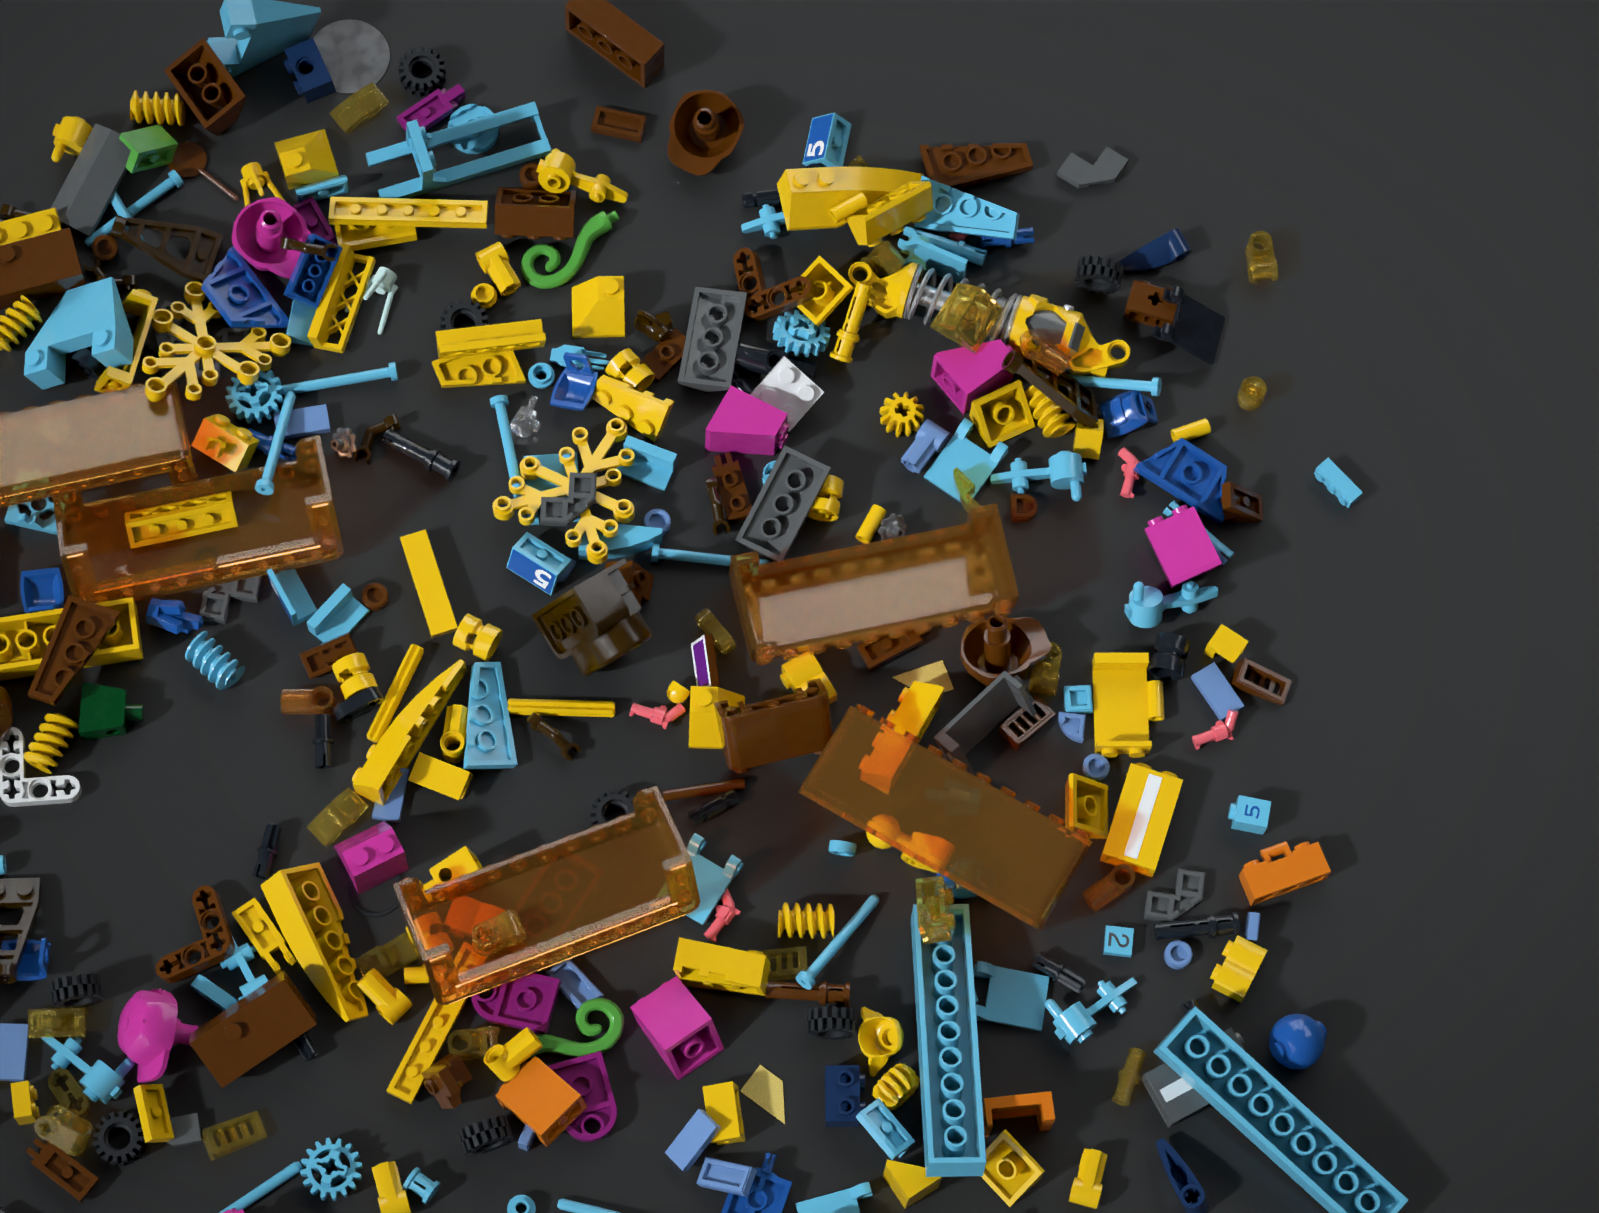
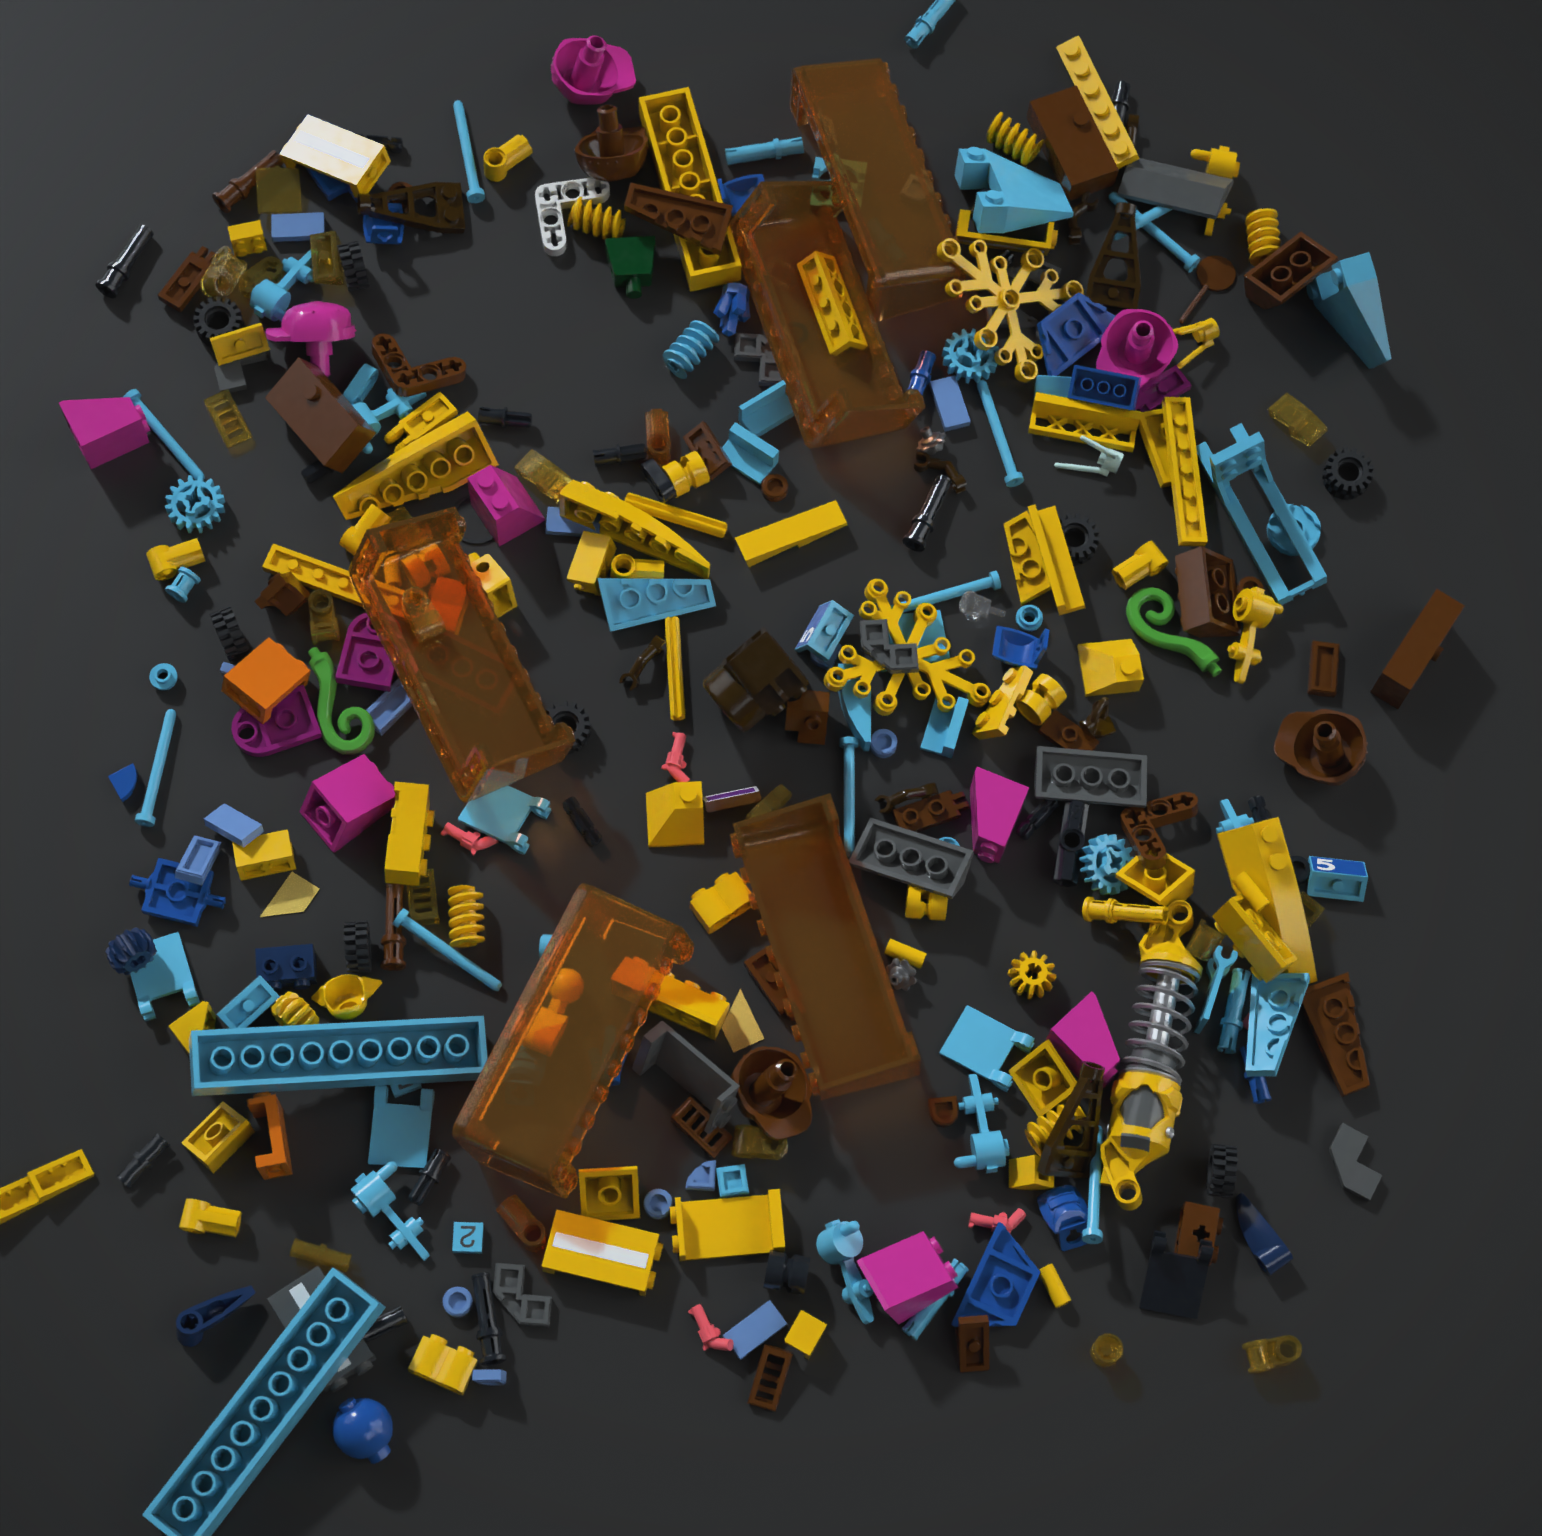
camera: 85 degrees right, 0 degrees up
(104, 247) = (1105, 208): reddish brown tile -> none
(149, 148) = (1215, 228): bright green panel -> none
(225, 442) = (914, 333): yellow brick -> none
(265, 485) = (918, 377): medium azure bar -> none
(304, 57) = (1321, 379): dark blue brick -> none
(306, 159) = (1232, 376): yellow slope -> none
(308, 248) = (1121, 376): dark brown arm -> none
(323, 189) = (1203, 395): medium azure slope -> none
(353, 54) = (1355, 406): flat silver sticker -> none
(433, 107) = (1305, 486): magenta hinge -> none
(484, 295) = (1108, 556): yellow plate -> none
(486, 641) = (738, 581): yellow wheel -> none
(507, 1058) = (304, 644): yellow piece -> none
(558, 353) = (1055, 650): medium azure piece -> none
(677, 693) = (701, 773): yellow hinge -> none
(704, 789) = (601, 811): reddish brown bar -> none
(775, 727) = (662, 866): reddish brown windscreen -> none
(788, 391) = (1036, 853): white plate -> none
(927, 441) = (1005, 1005): medium blue piece -> none
(934, 909) = (470, 1028): clear yellow brick -> none
(964, 490) = (951, 1043): clear yellow slope -> none
(967, 316) = (1137, 1020): clear yellow slope -> none
(1045, 353) = (1109, 1105): clear orange piece -> none
(1155, 700) = (738, 1262): yellow axle -> none
(1249, 814) = (615, 1369): medium azure brick -> none
(1294, 871) = (545, 1398): orange piece -> none
(1338, 483) = (1012, 1453): medium azure piece -> none

